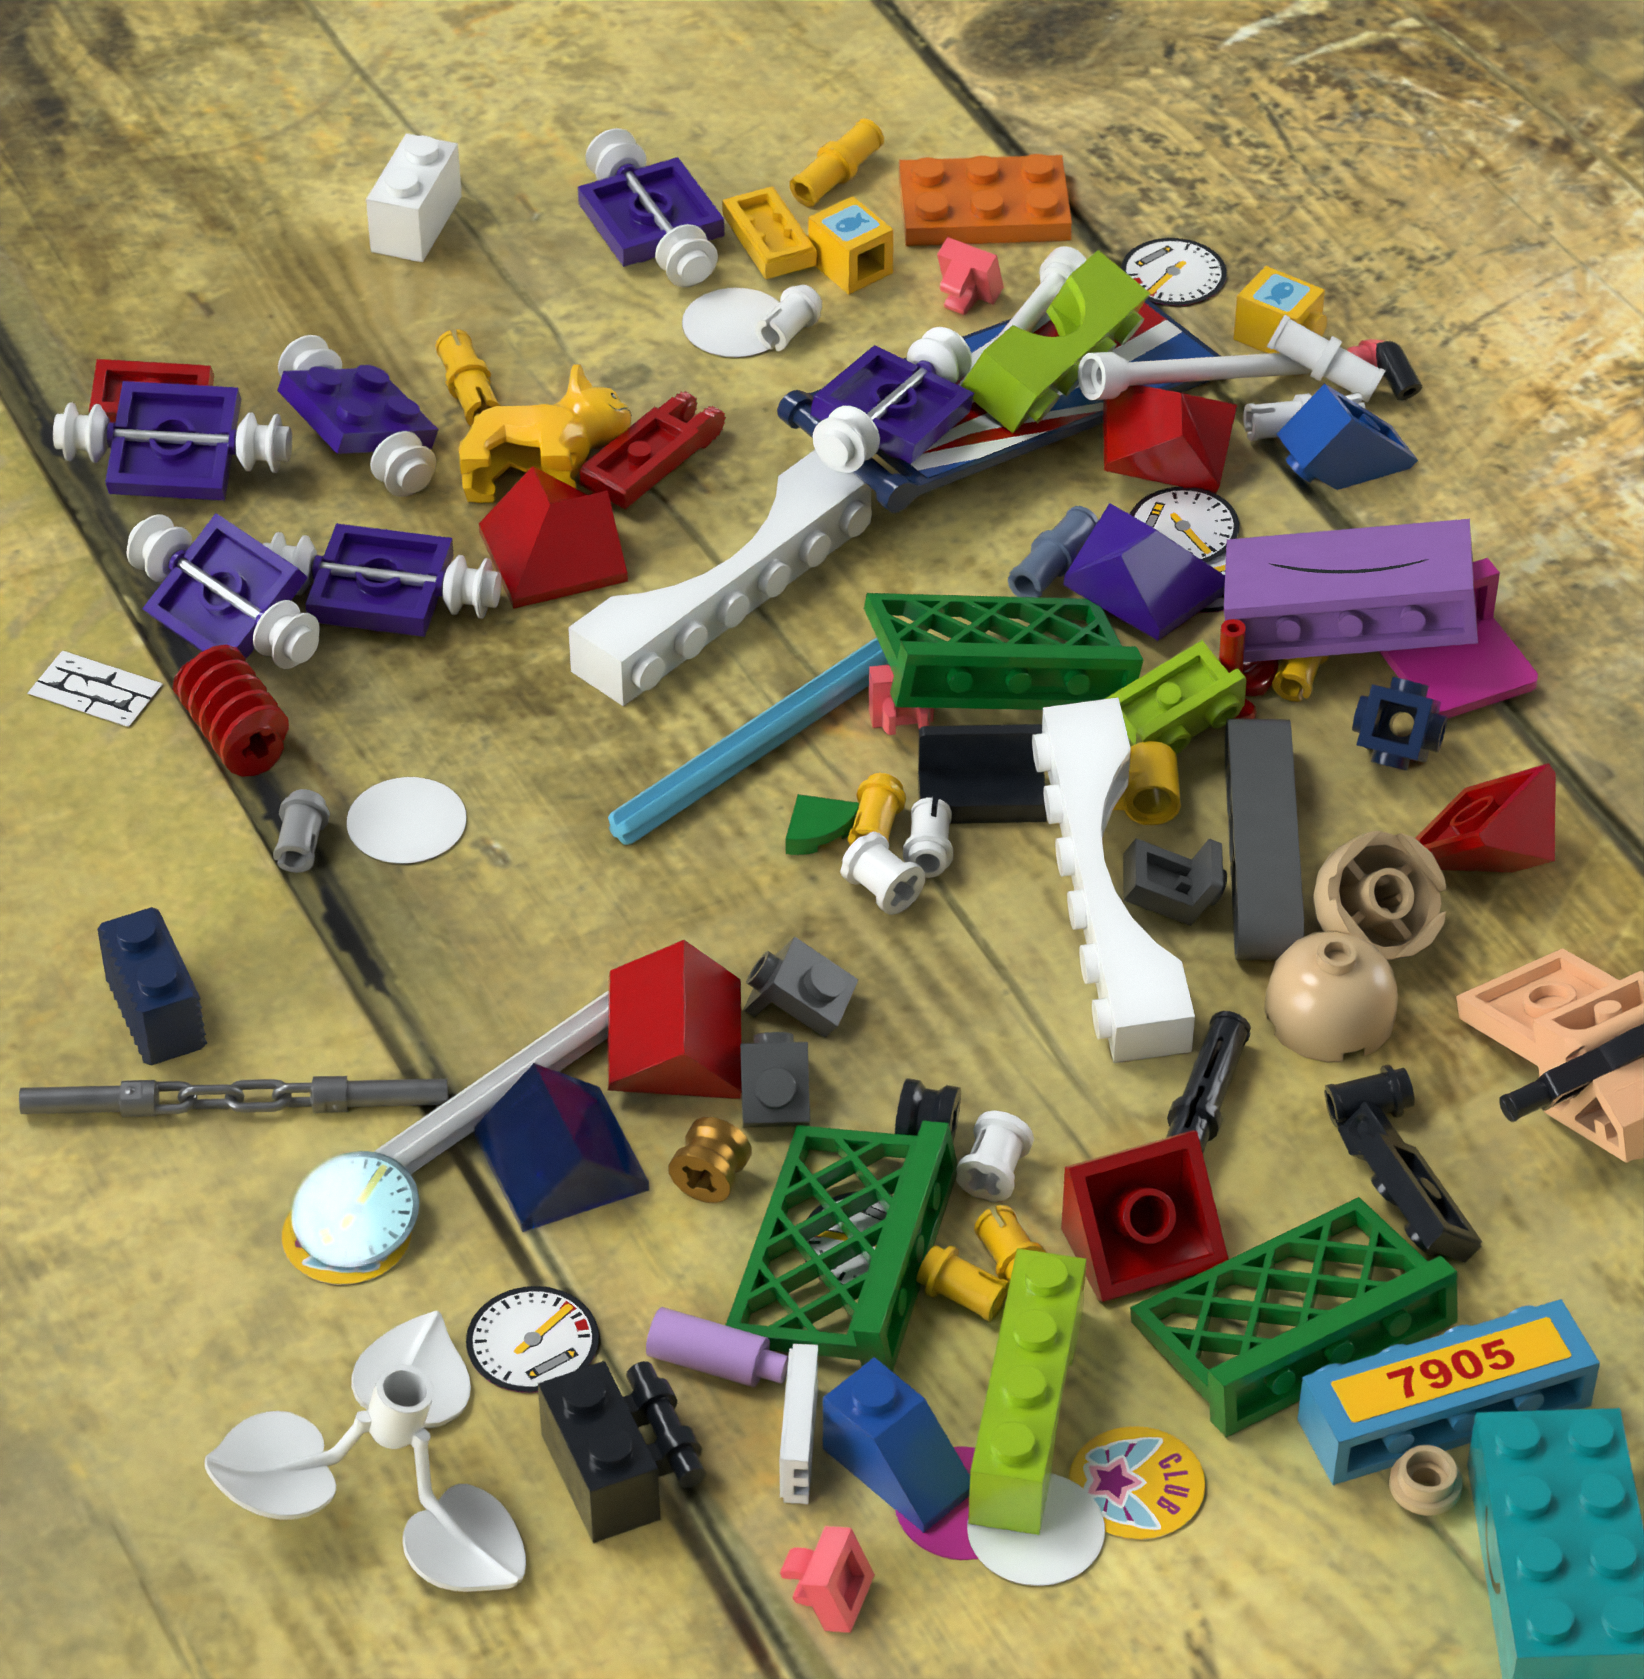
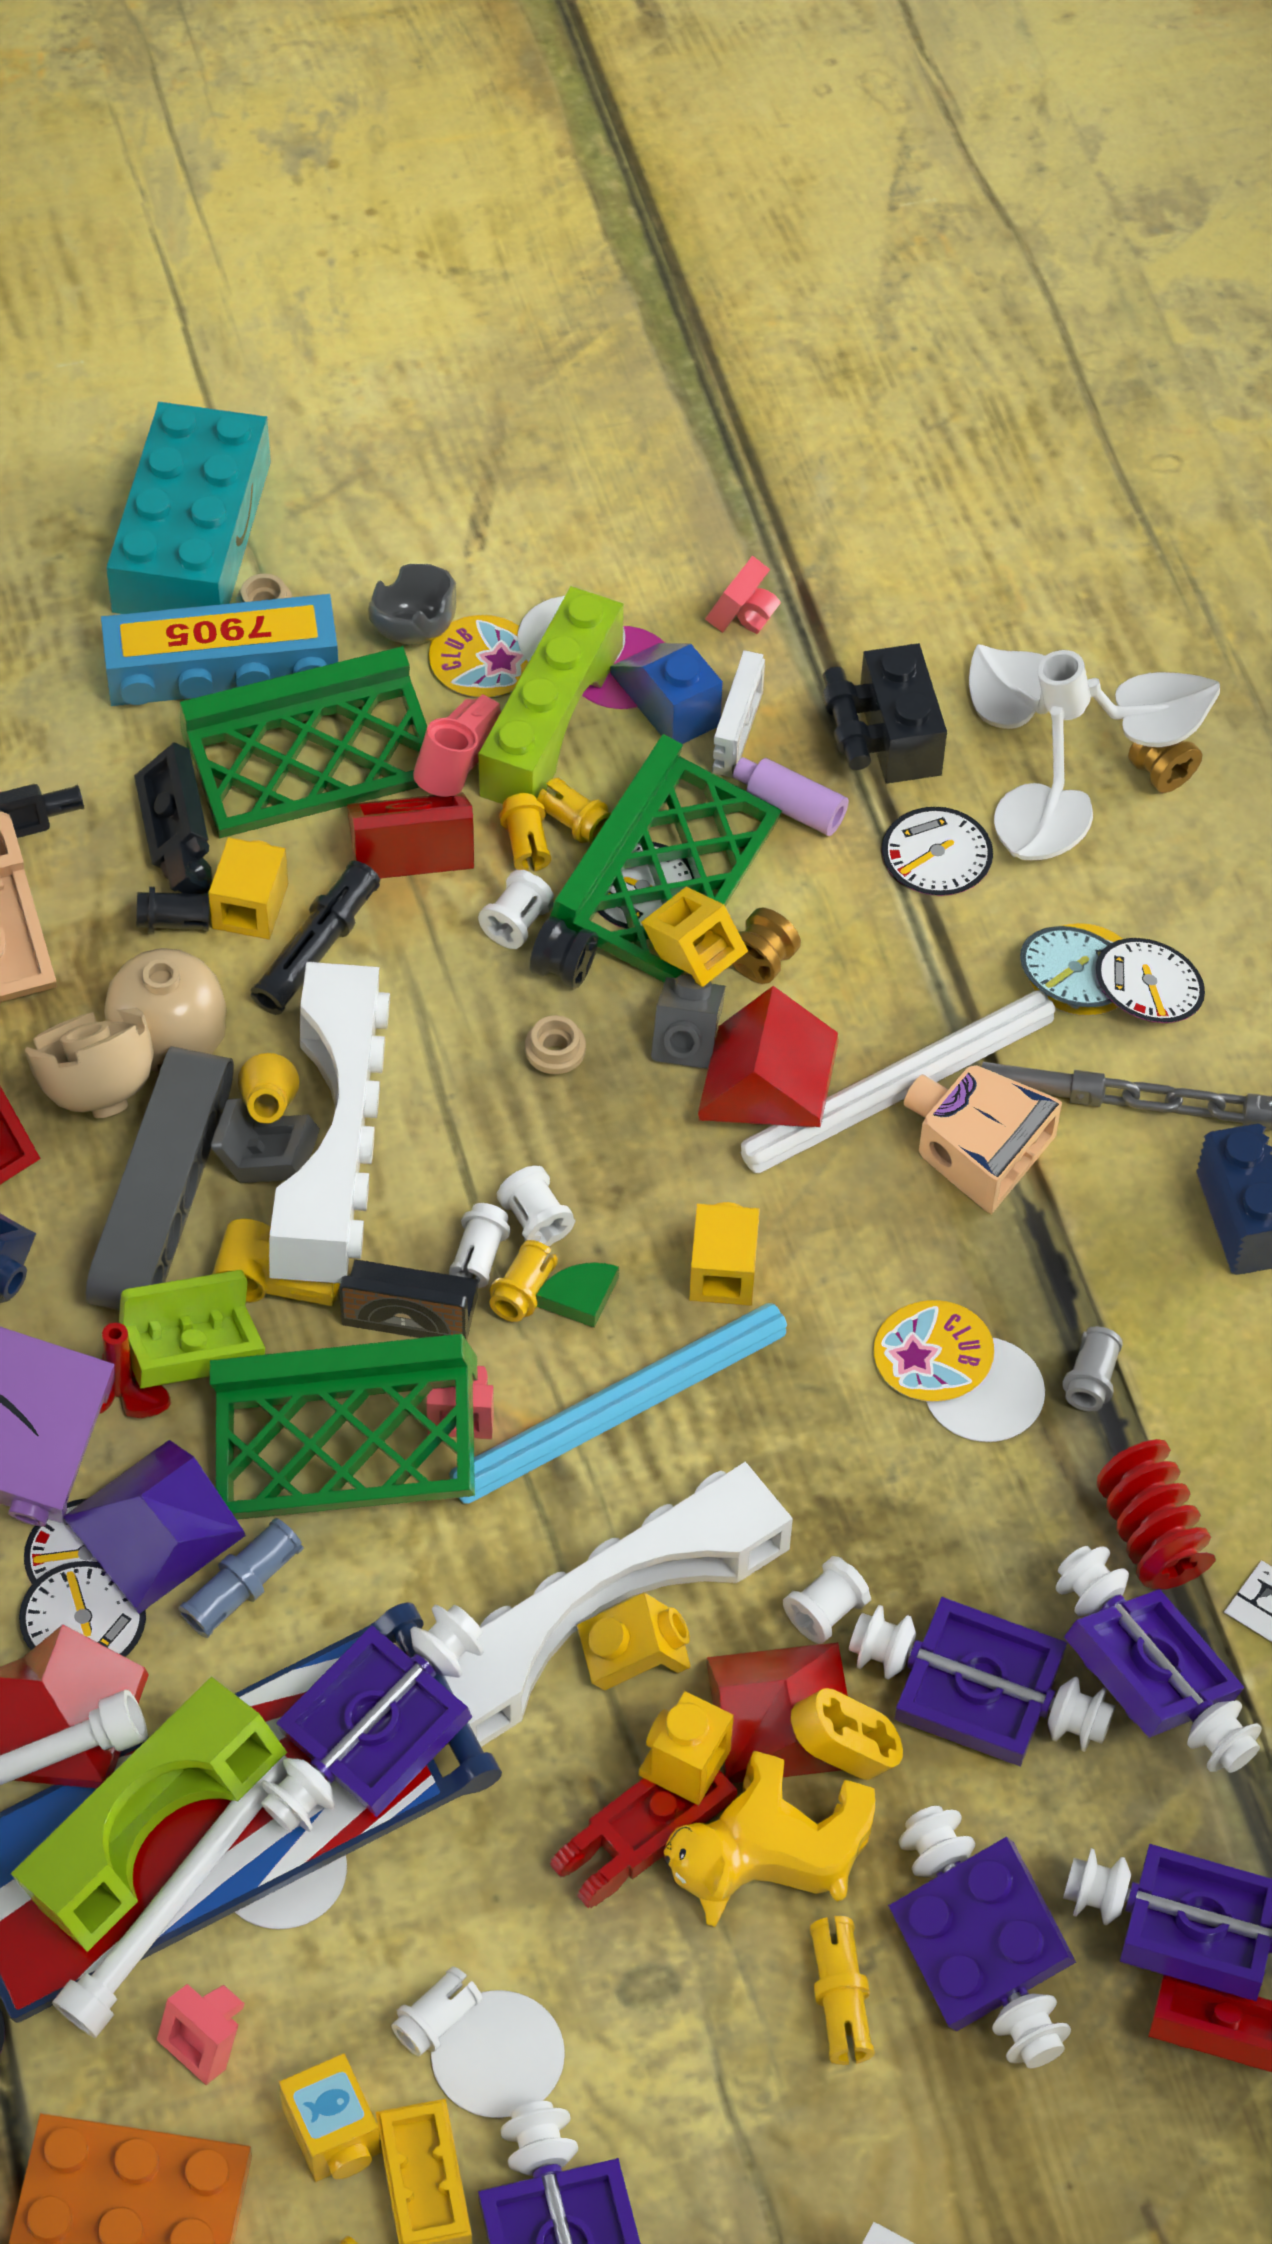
camera: 170 degrees left, 10 degrees up
(269, 1216) = (1150, 980): none -> white sticker
(435, 1012) = (983, 1131): none -> light nougat torso
(460, 838) = (933, 1350): none -> sticker
(491, 498) = (846, 1734): none -> yellow beam
(527, 611) = (827, 1600): none -> white bush
(557, 1149) = (886, 990): clear blue slope -> none
(624, 450) = (688, 1747): none -> yellow brick
(683, 858) = (724, 1253): none -> yellow brick
(685, 553) = (633, 1640): none -> yellow bracket
(788, 1112) = (695, 935): none -> yellow brick
(802, 986) = (648, 1101): dark grey bracket -> none
(910, 1034) = (558, 1032): none -> tan plate
(1115, 1311) = (453, 746): none -> coral piece
(1188, 913) = (268, 1086): none -> yellow cone
(1237, 1480) = (415, 605): none -> dark grey hair
(1295, 1123) = (248, 888): none -> yellow brick

